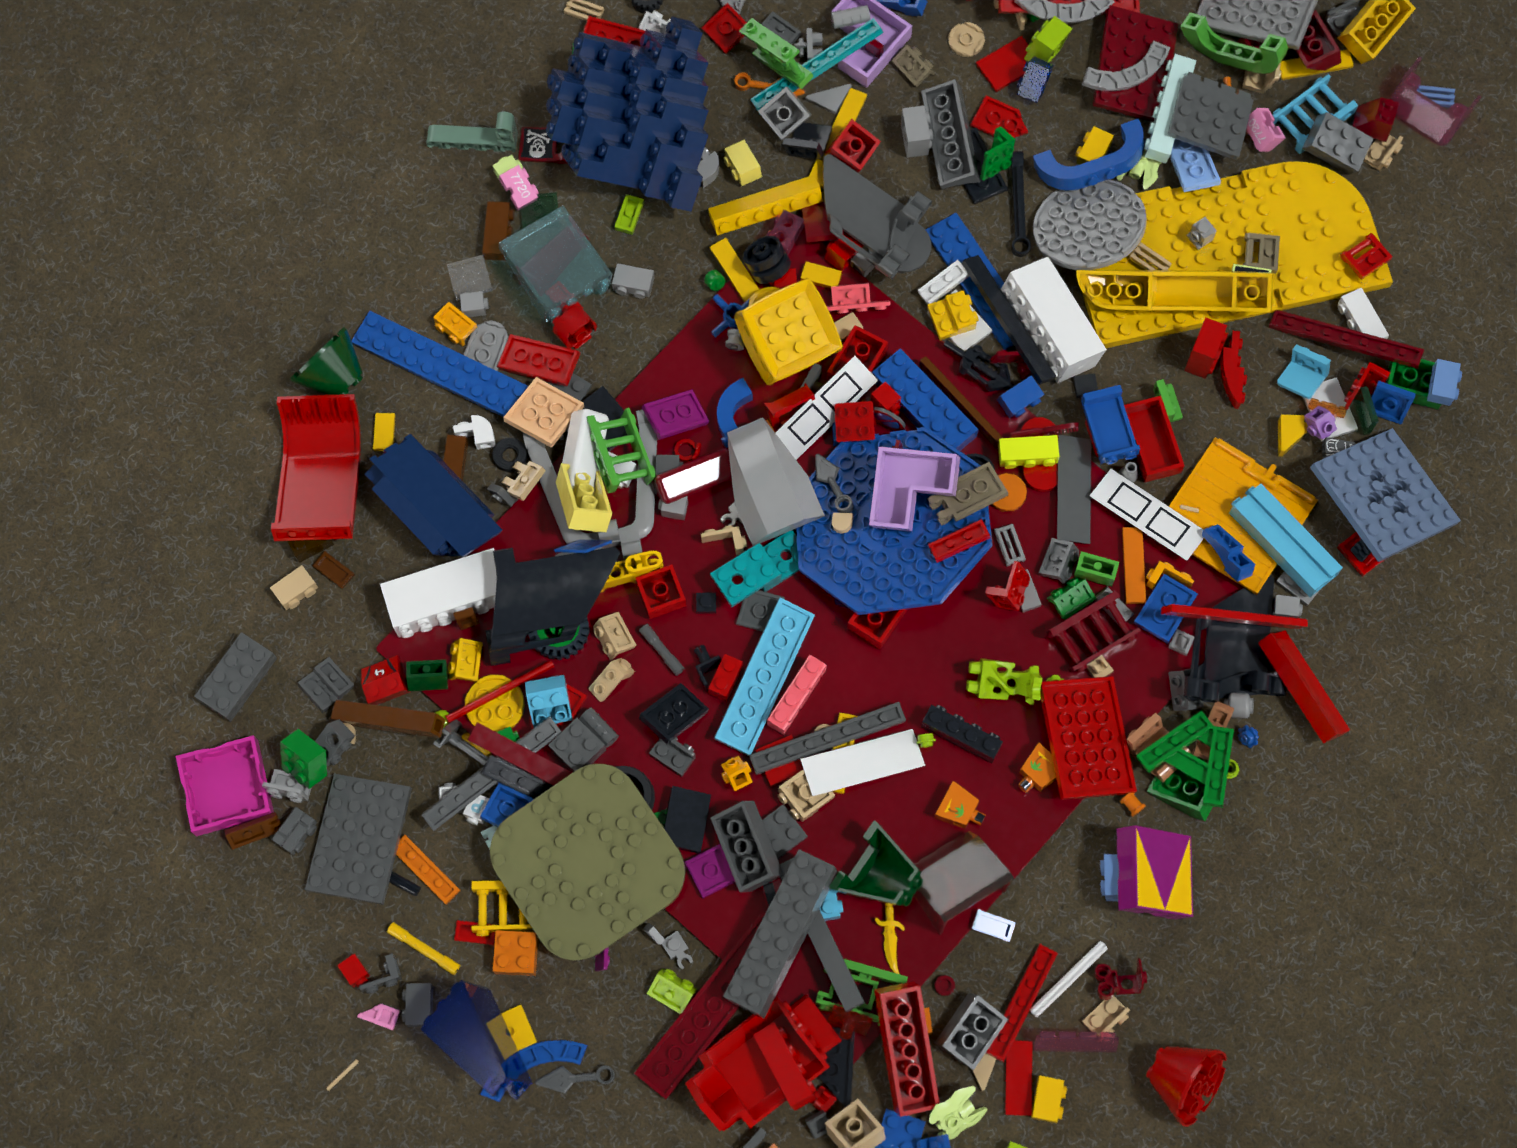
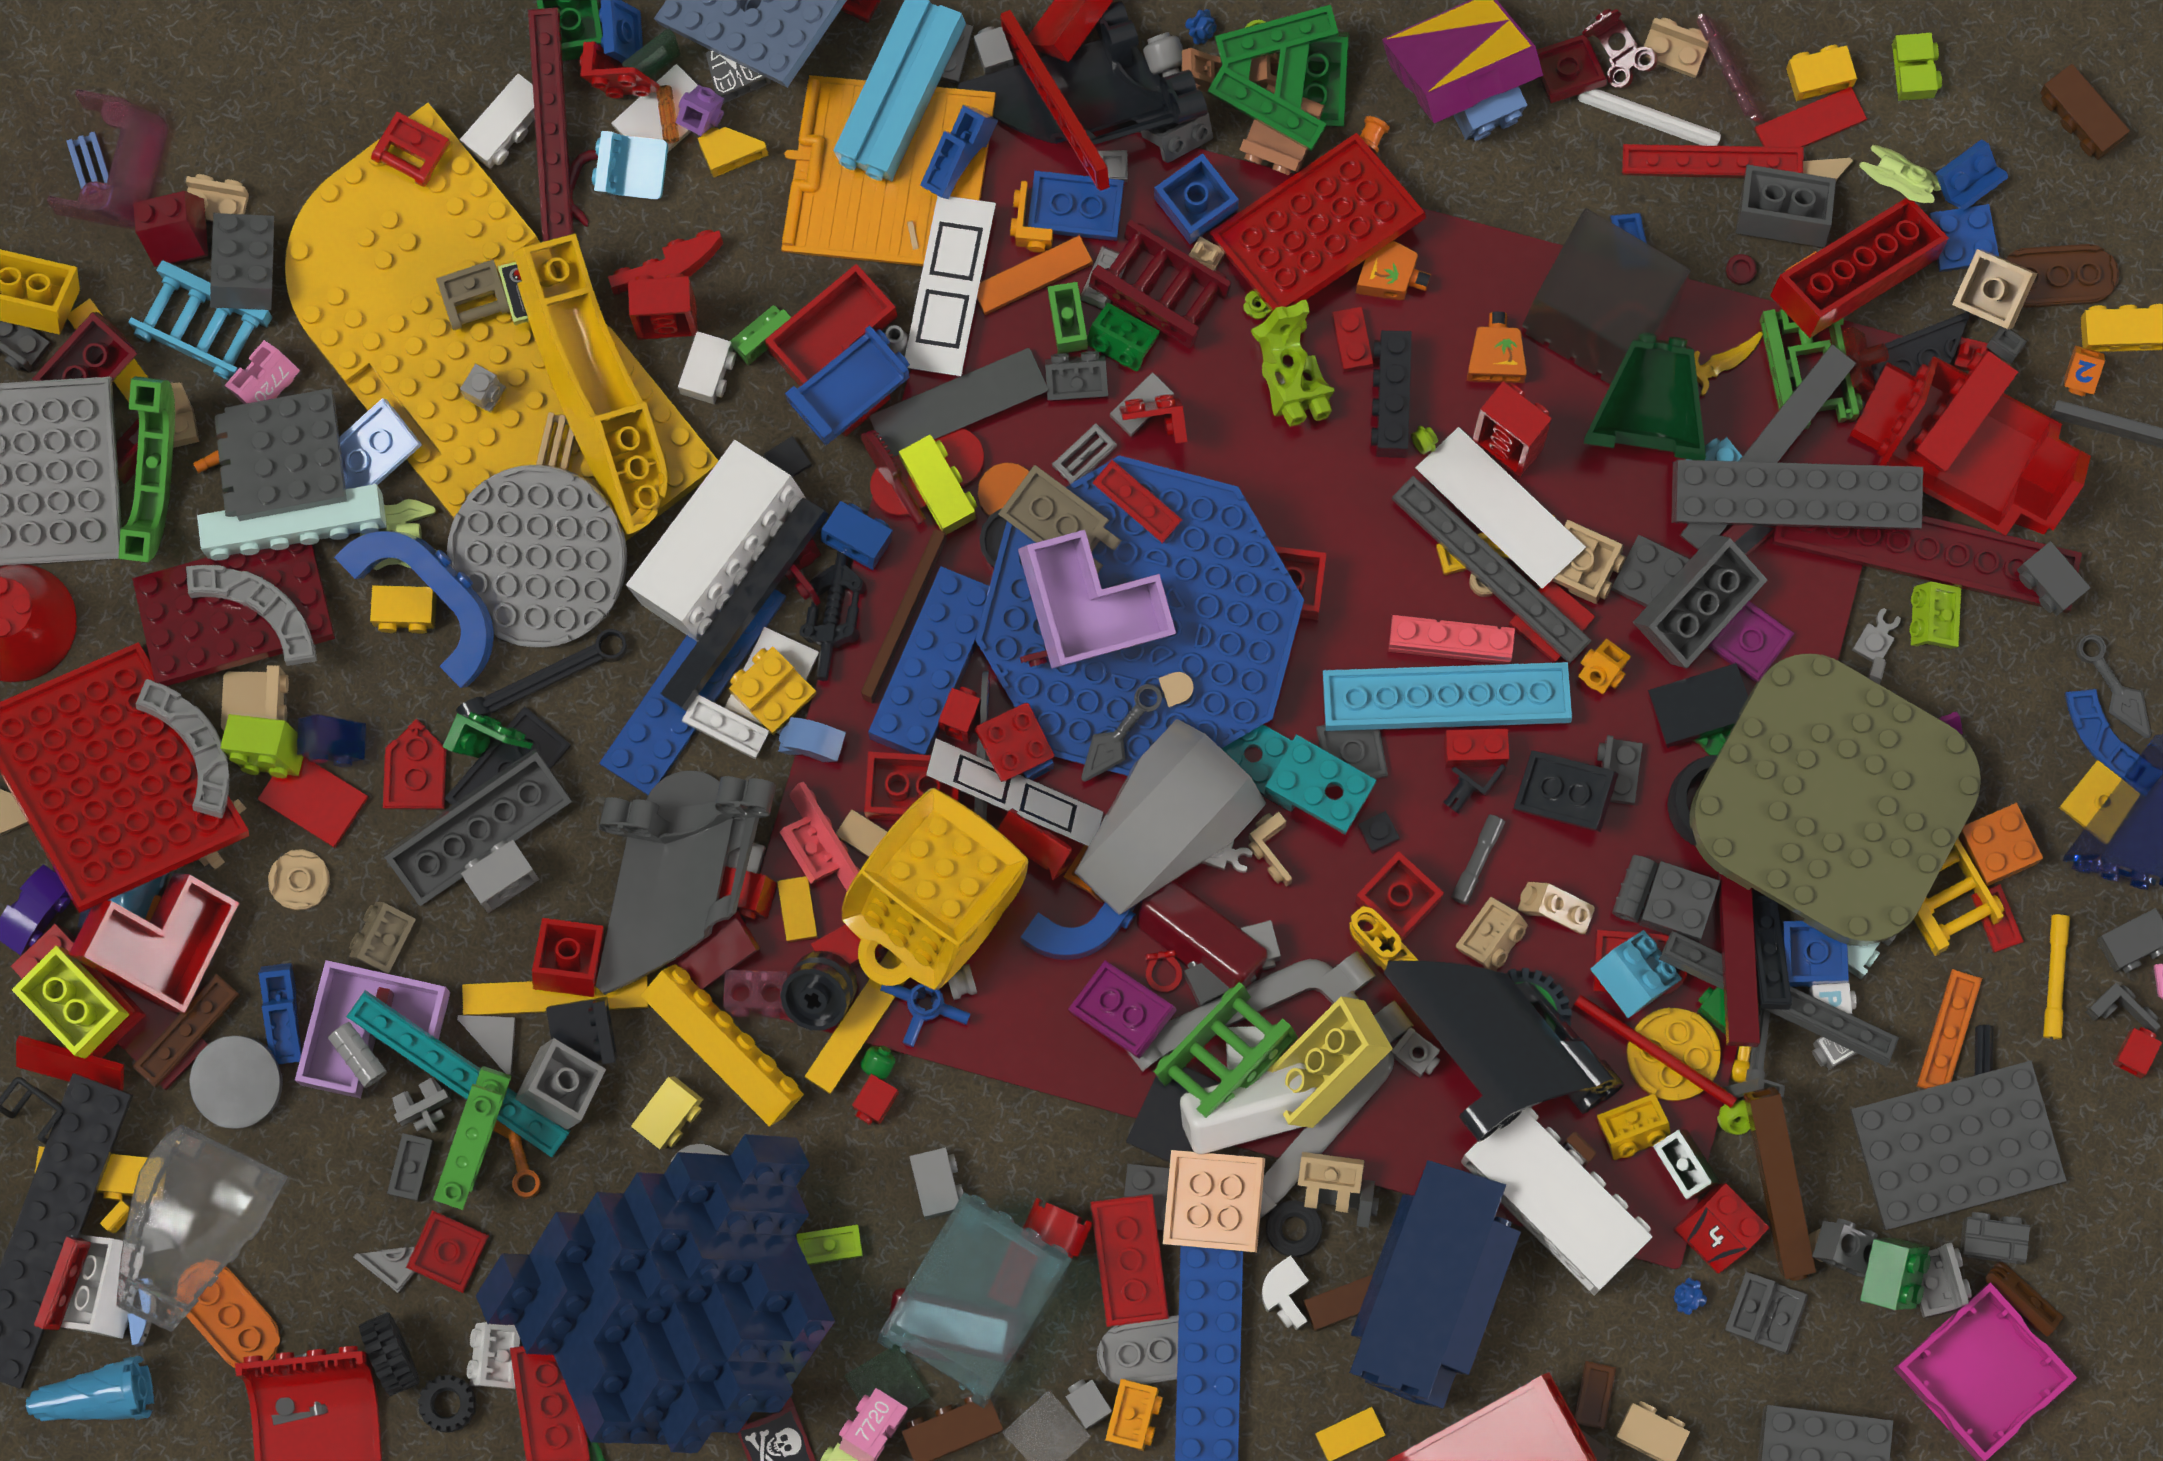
camera: 115 degrees left, 5 degrees up
(357, 645) = (1689, 1296): none -> blue plant
(583, 546) = (1402, 1024): blue piece -> none
(656, 1068) = (2052, 579): none -> dark grey brick
(694, 269) = (874, 1100): none -> red brick
(902, 781) = (1512, 428): none -> red brick
(912, 321) = (811, 740): none -> medium blue brick
(1009, 729) = (1352, 339): none -> red plate
(1077, 55) = (255, 694): none -> tan bracket
(1121, 943) = (1570, 69): none -> dark red tile
(1136, 676) = (1196, 198): none -> blue brick
(1160, 363) = (706, 368): none -> white brick
(1312, 343) = (575, 169): none -> dark red animal

